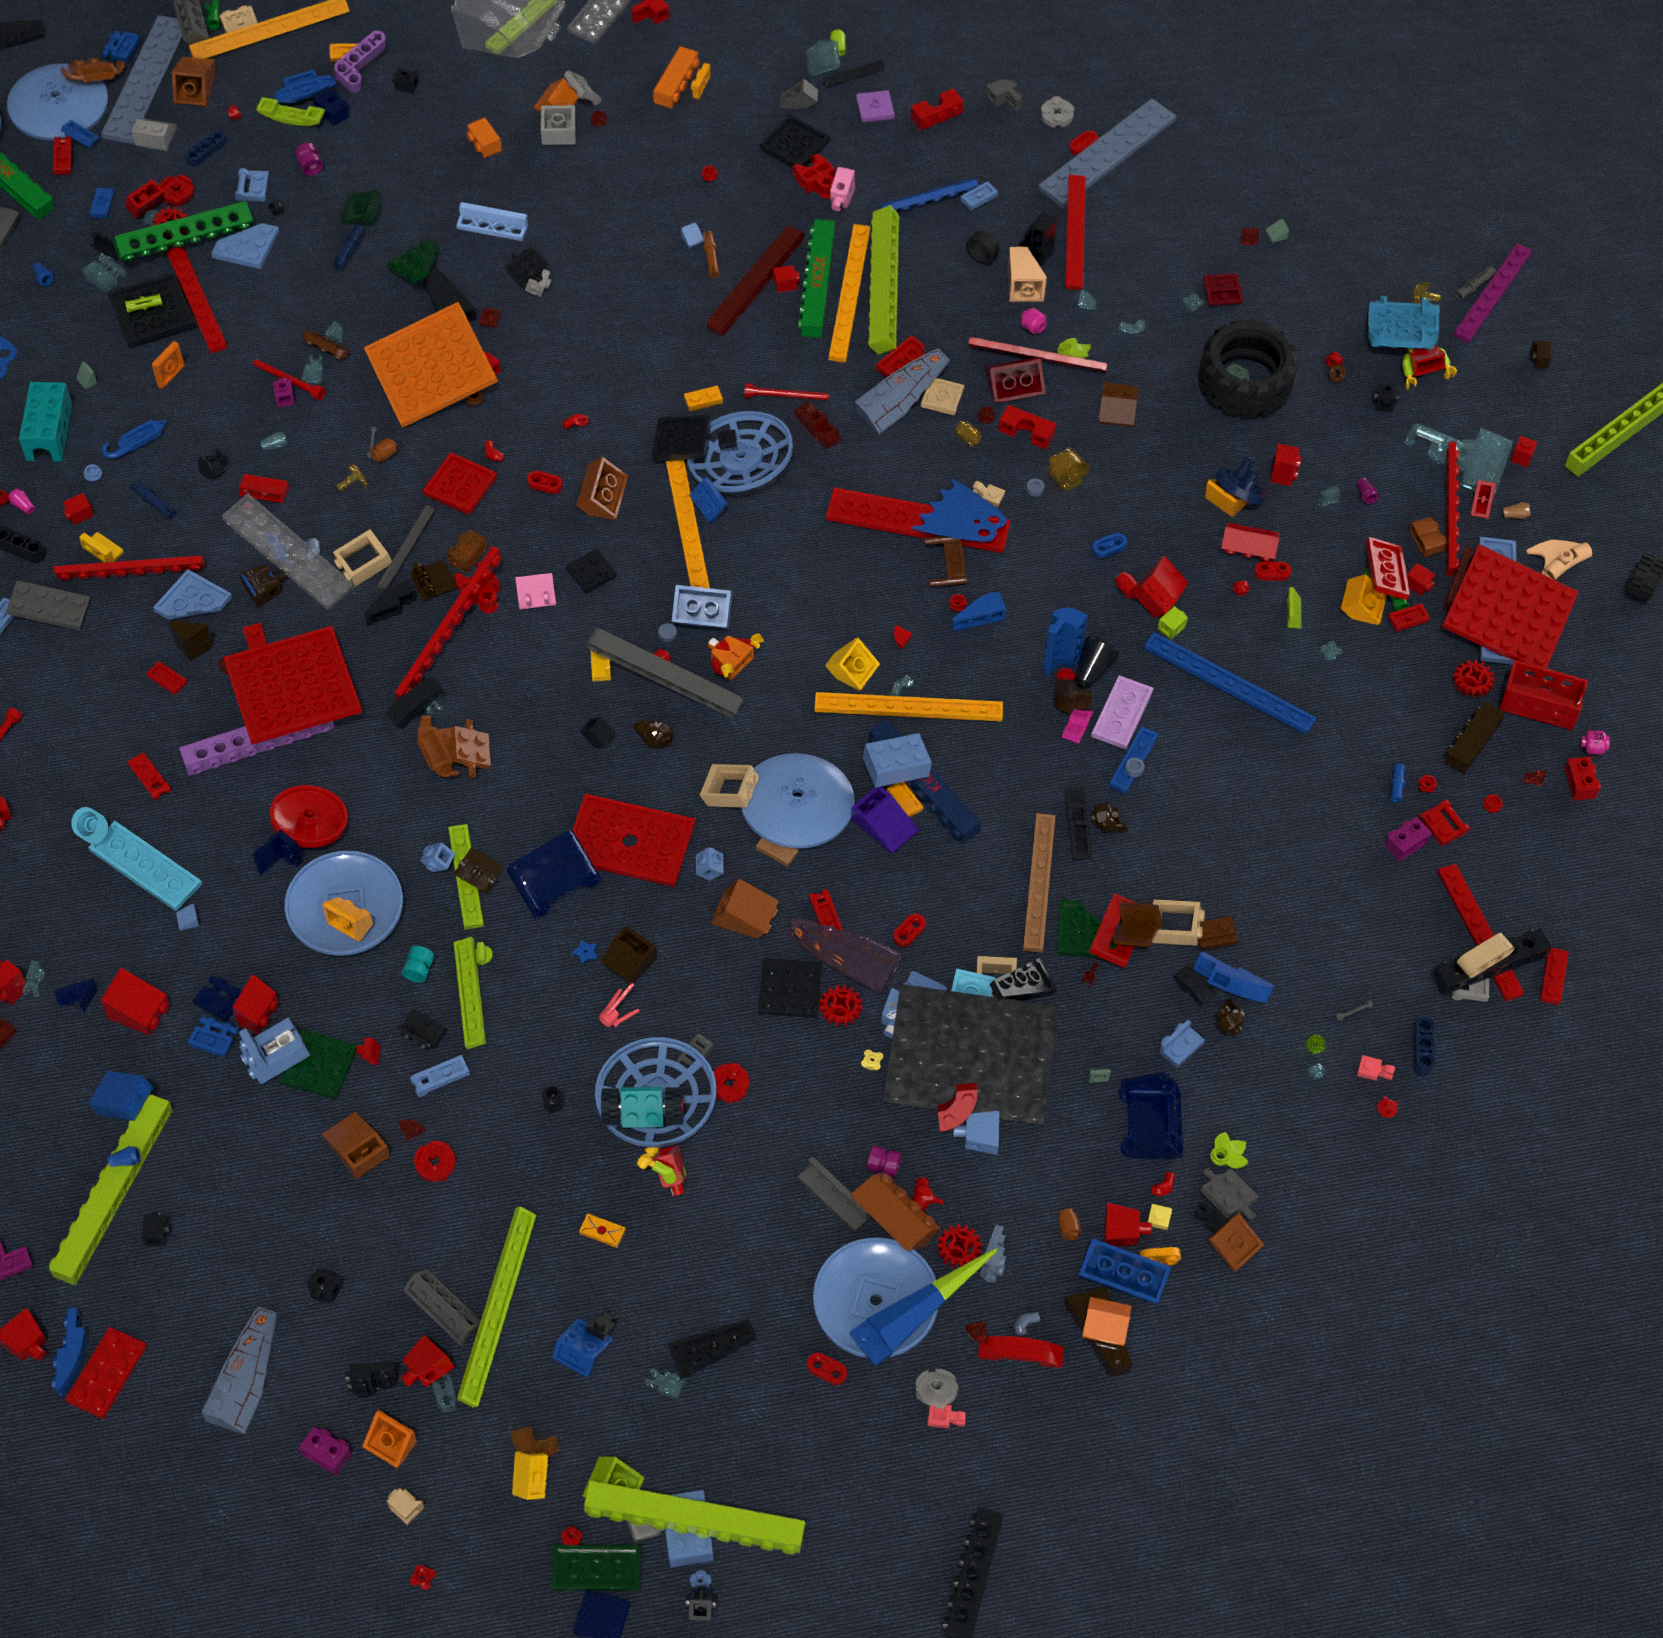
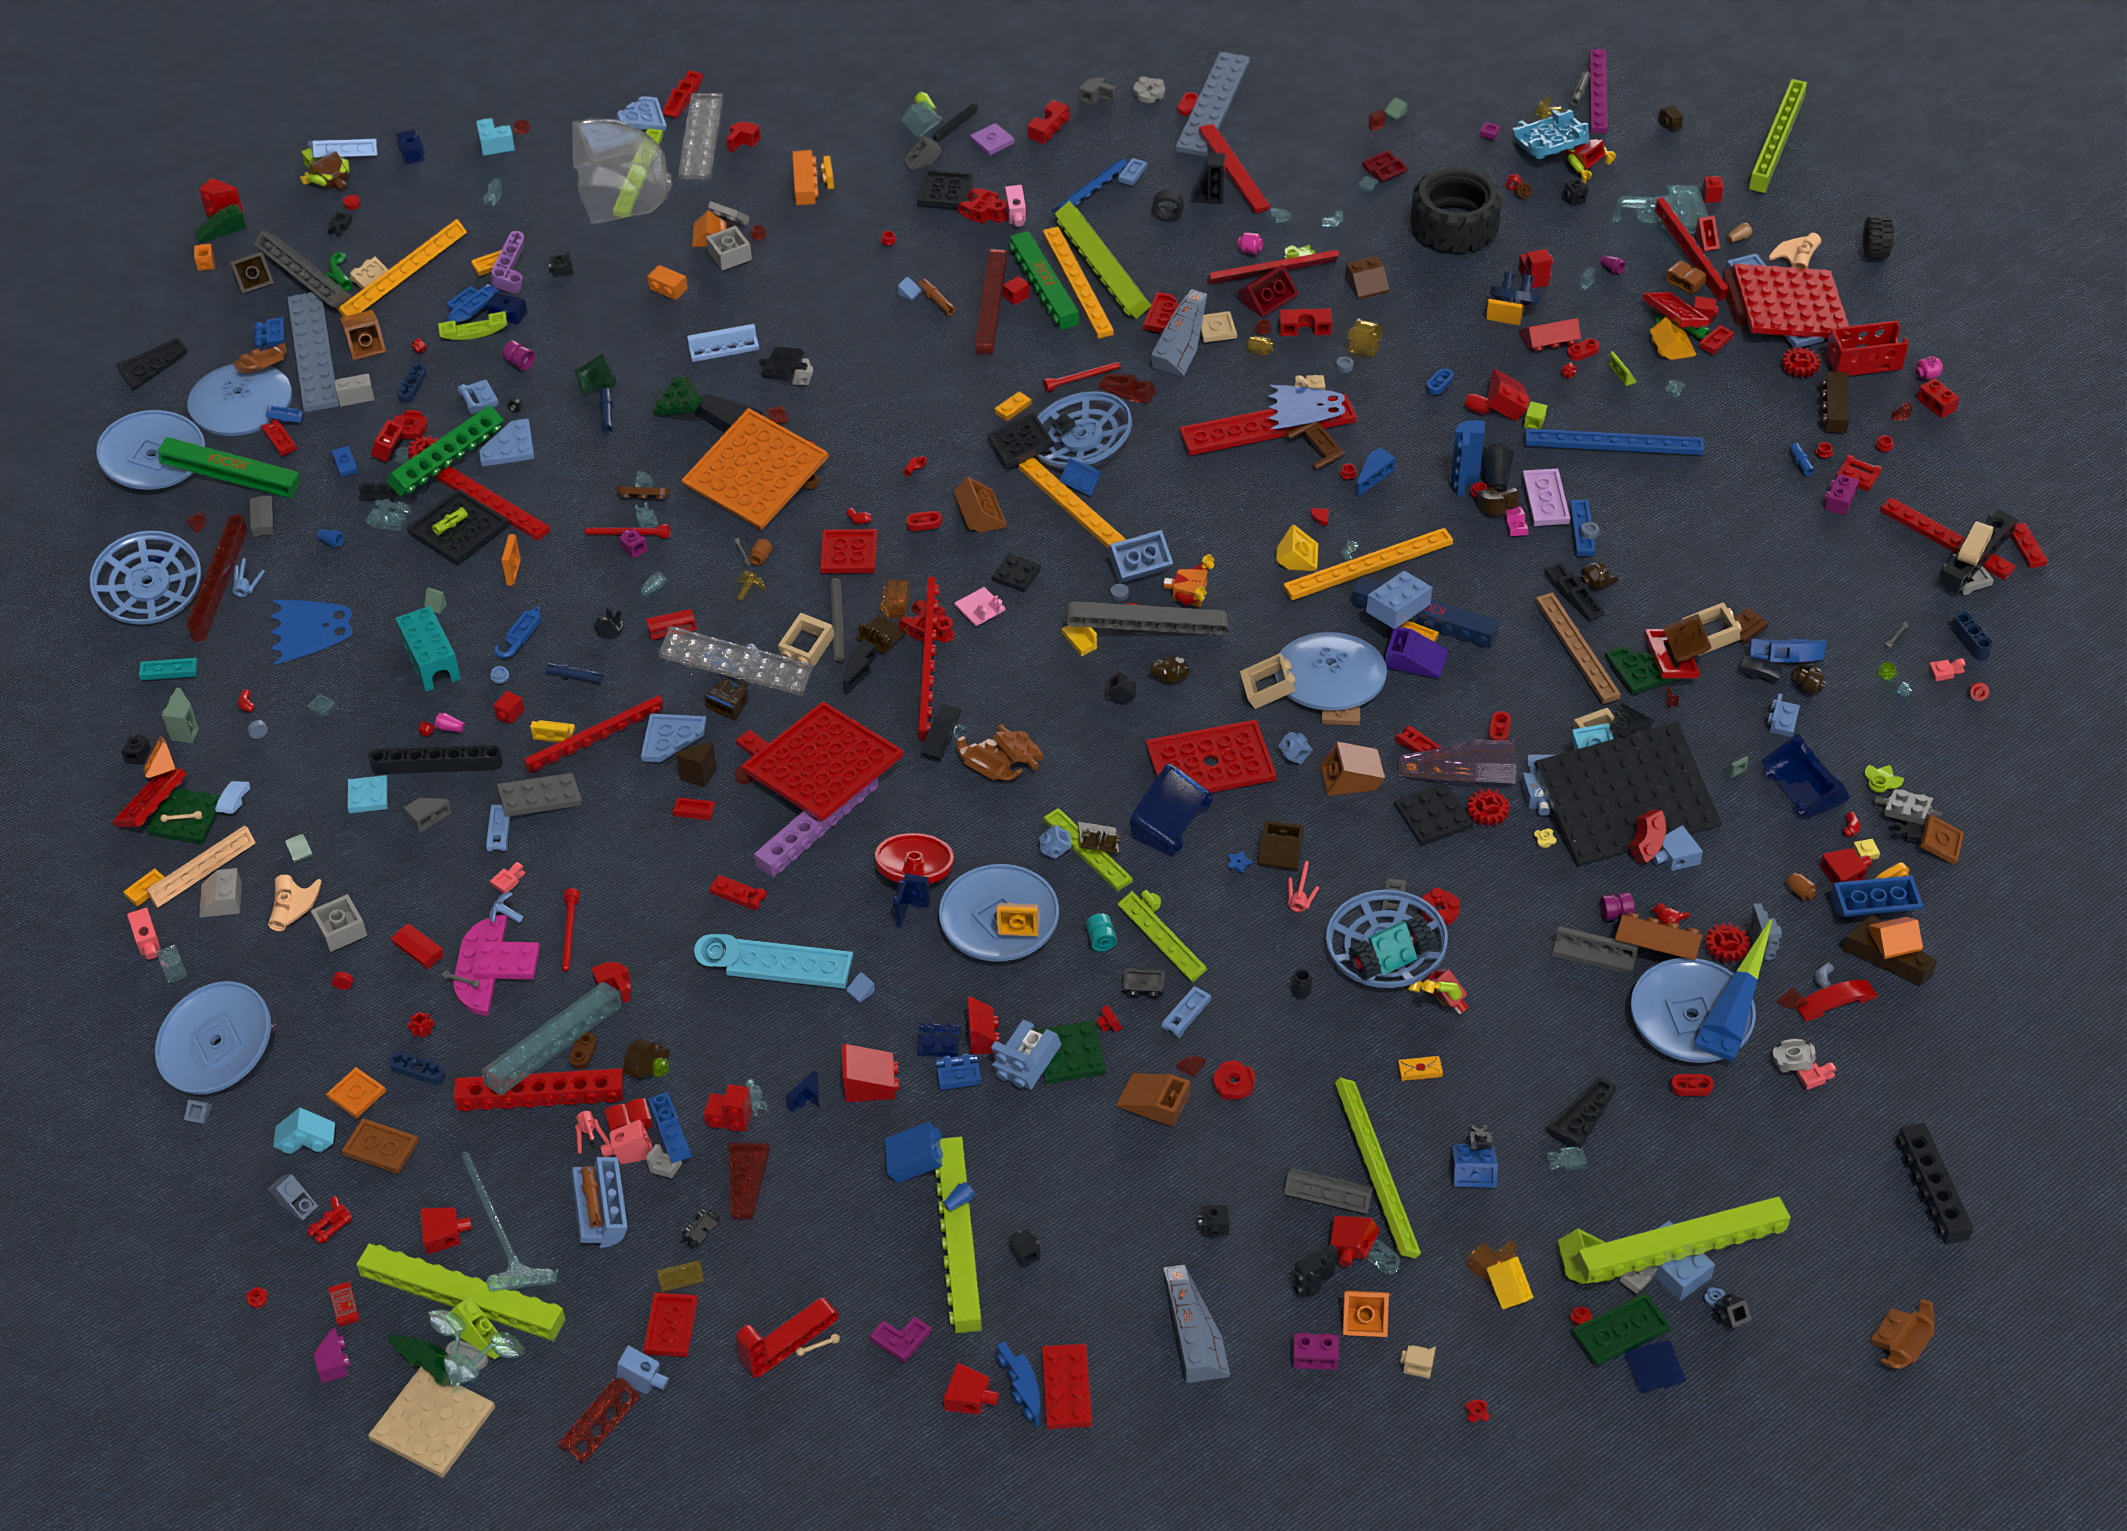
camera: 25 degrees left, 10 degrees down
(1025, 277) = (1219, 212): light nougat slope -> none
(1352, 293) = (1490, 130): none -> magenta plate

